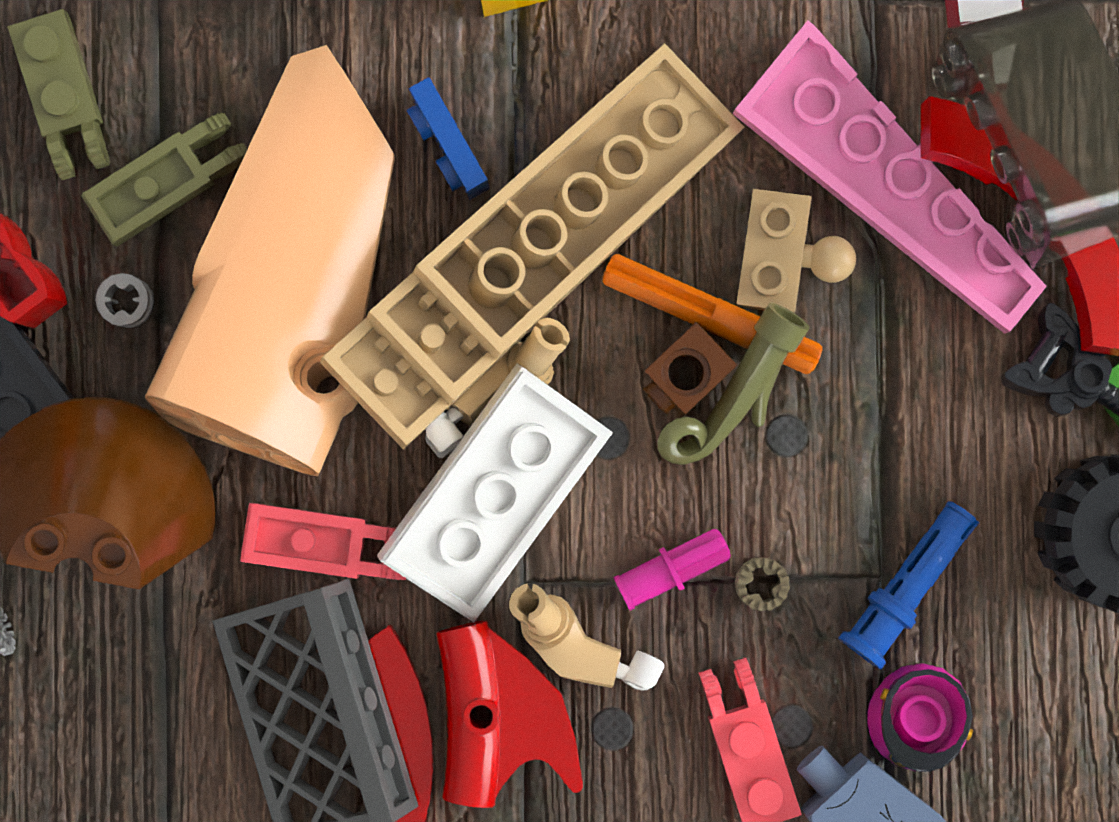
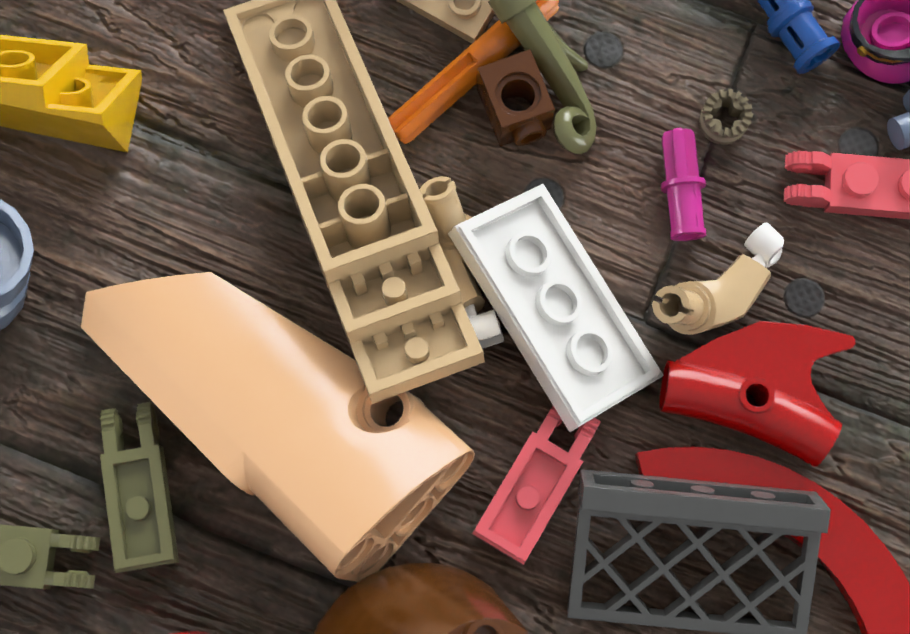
camera: 70 degrees left, 10 degrees down
(128, 283) = (216, 568): light grey bush -> none
(433, 119) = (199, 221): blue plate -> none

